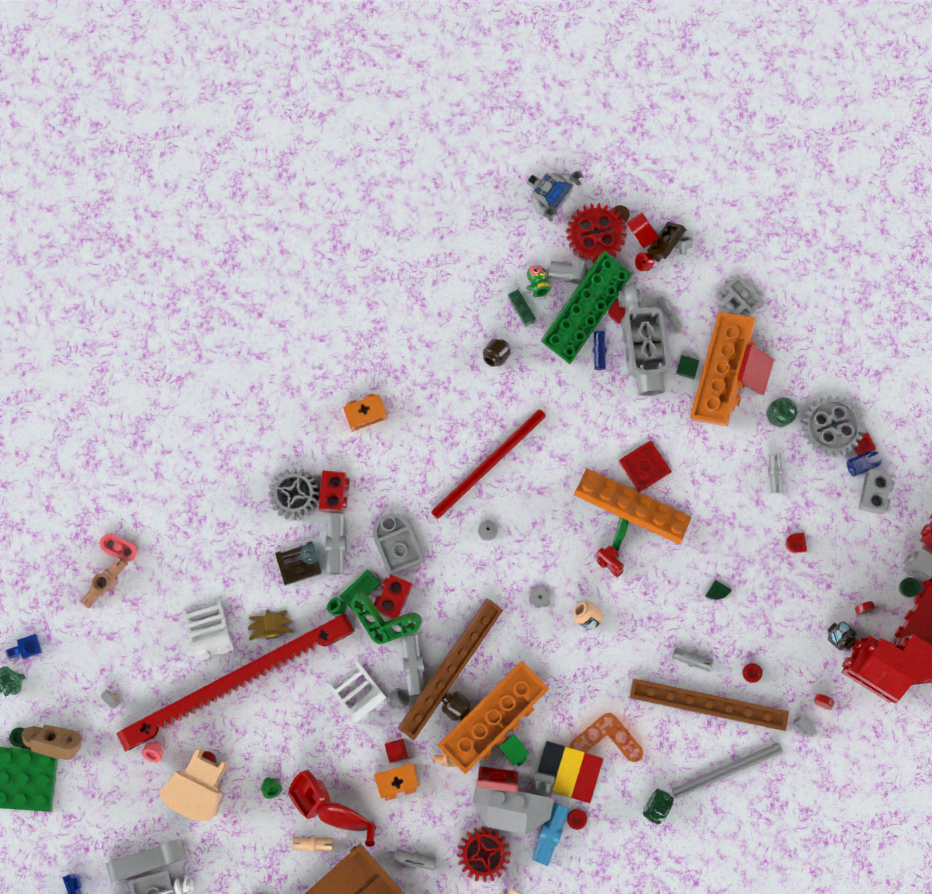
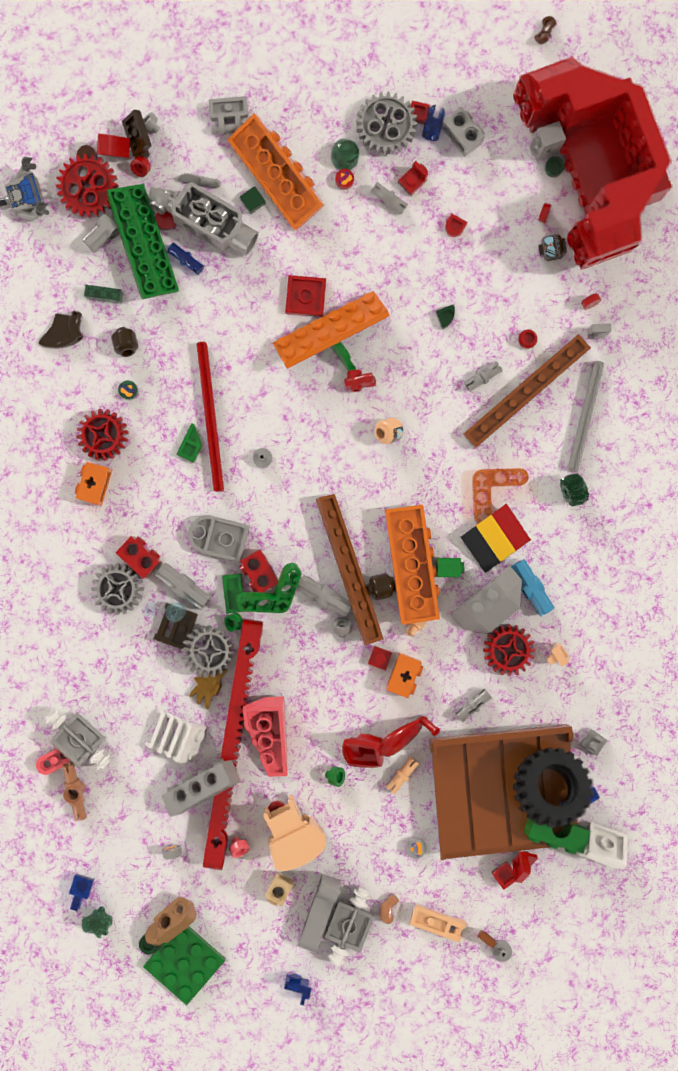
camera: 50 degrees left, 10 degrees up
(148, 553) = (77, 739): none -> light grey plate
(150, 807) = (282, 881): none -> tan brick
(204, 696) = (226, 778): none -> light grey brick
(270, 700) = (267, 727): none -> coral wedge
(306, 616) = (206, 660): none -> light grey gear
(373, 701) = (328, 650): white plate -> none
(407, 374) = (106, 428): none -> red gear
(454, 465) = (190, 445): none -> green tile
(460, 383) = (128, 390): none -> clear green tile
(468, 299) = (63, 332): none -> dark brown arm
(497, 779) = (462, 597): red tile -> none
(537, 276) = (88, 261): green animal -> none
(540, 591) = (342, 452): light grey plant -> none
(542, 783) = (490, 564): light grey tile -> none
(577, 819) = (535, 558): red tile -> none
(755, 369) = (295, 147): tile -> none
(762, 426) = (344, 179): none -> red tile
(807, 481) = (414, 178): none -> red bracket

